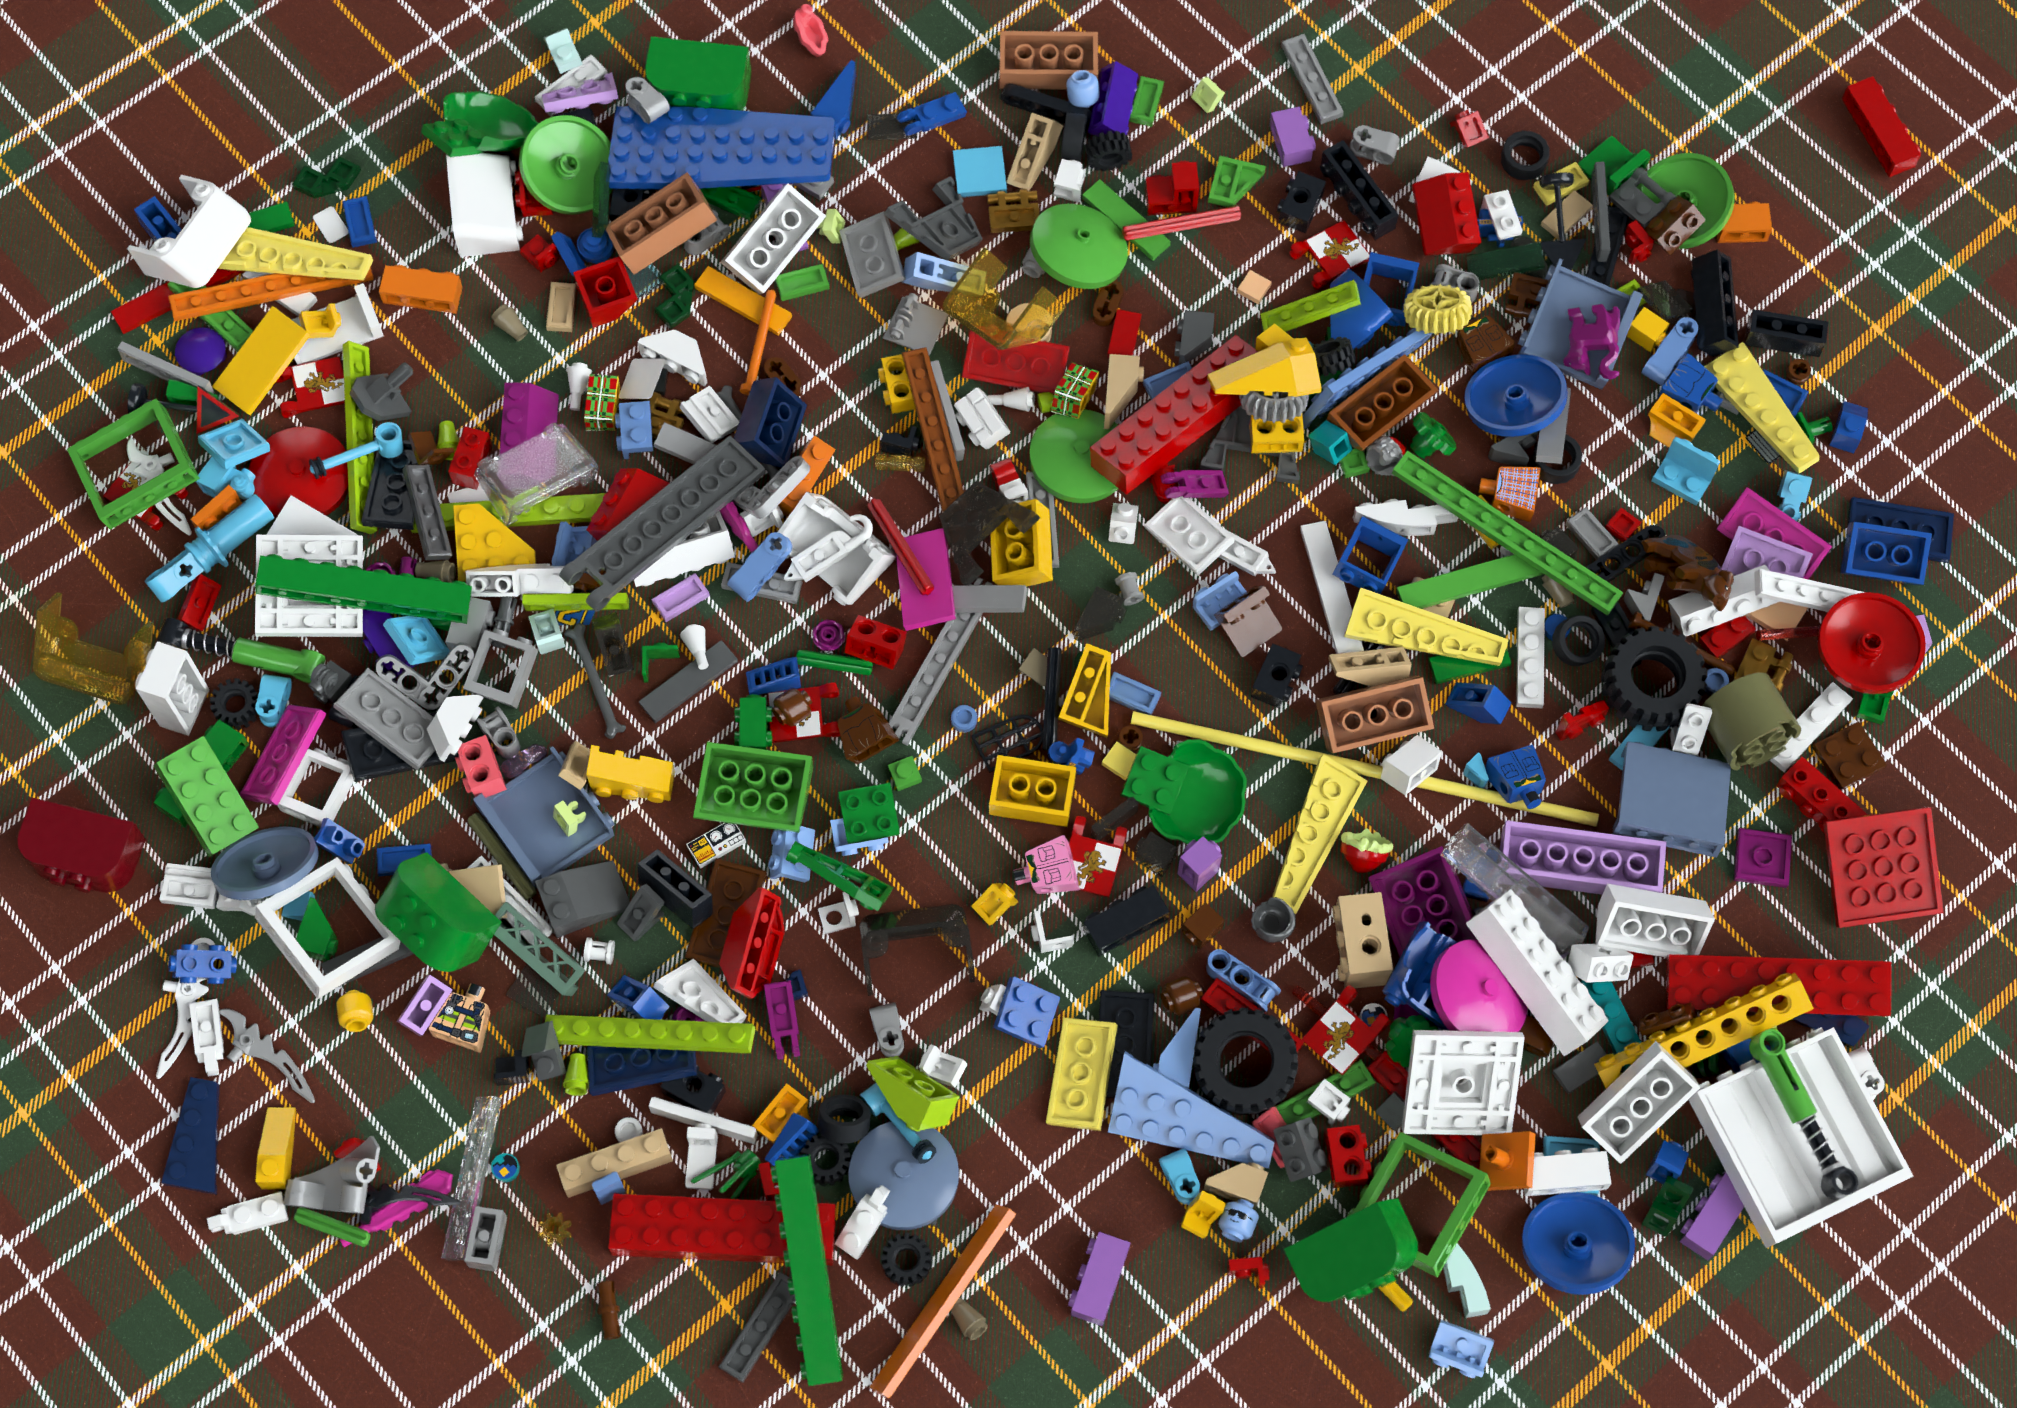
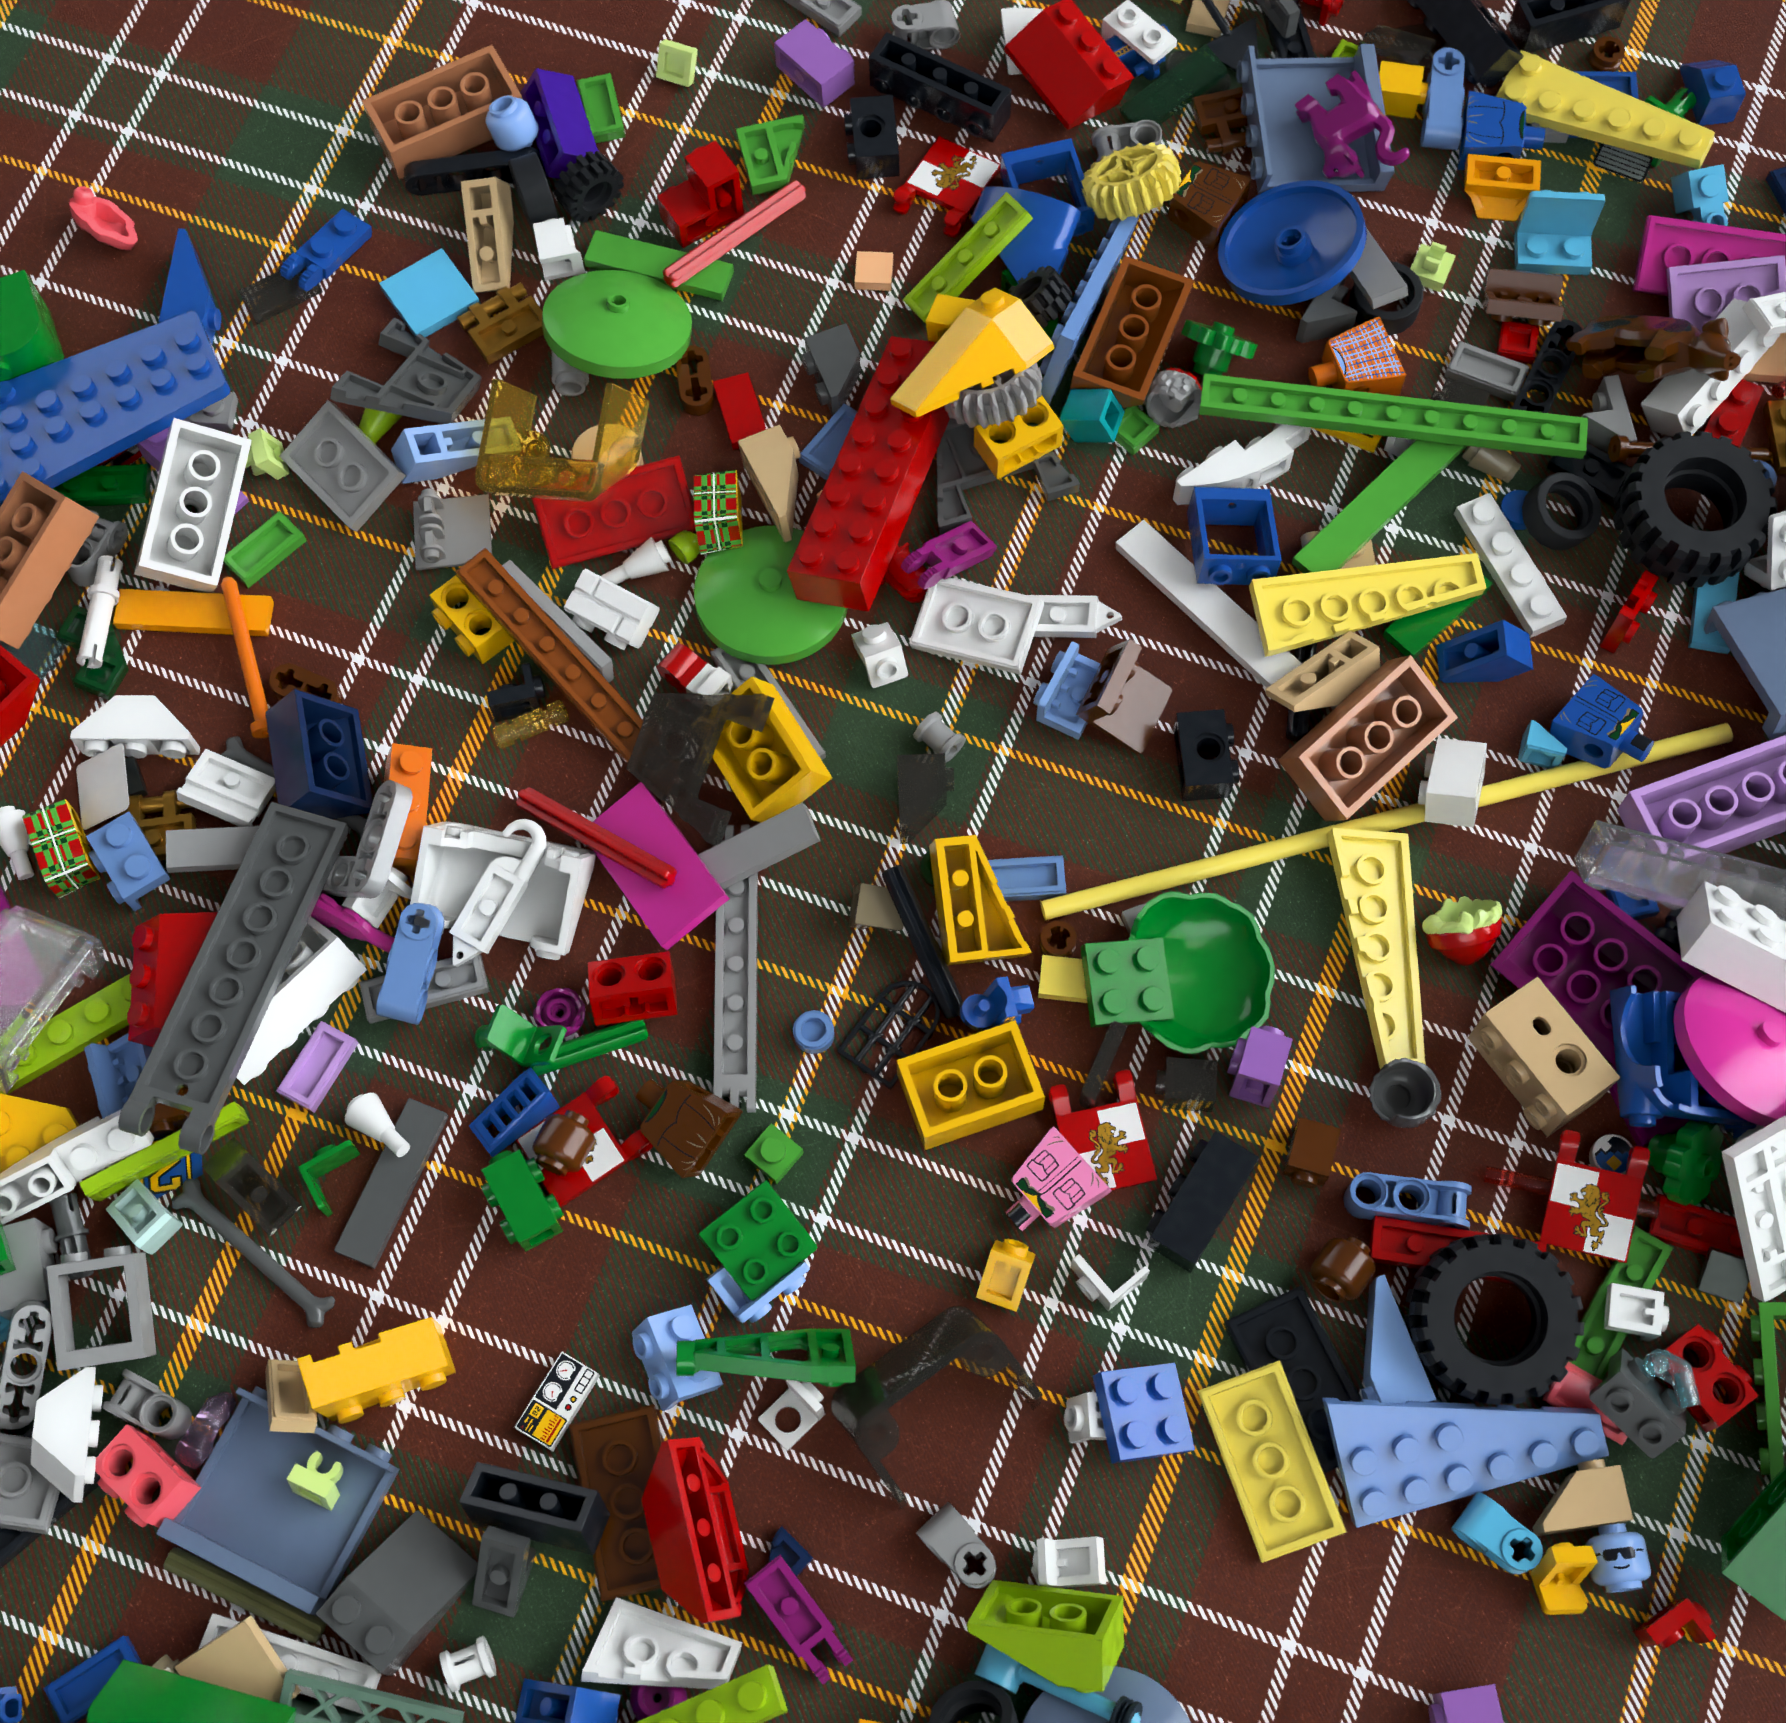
camera: 25 degrees left, 0 degrees up
(695, 267) = (102, 598): none -> white pin
(753, 787) = (570, 1293): bright green slope -> none
(798, 637) = (519, 1038): none -> green bracket
(1328, 1141) = (1676, 1372): none -> clear light blue arm
(1598, 452) = (1433, 265): none -> yellowish green tile
(1641, 499) = (1523, 295): none -> reddish brown bracket

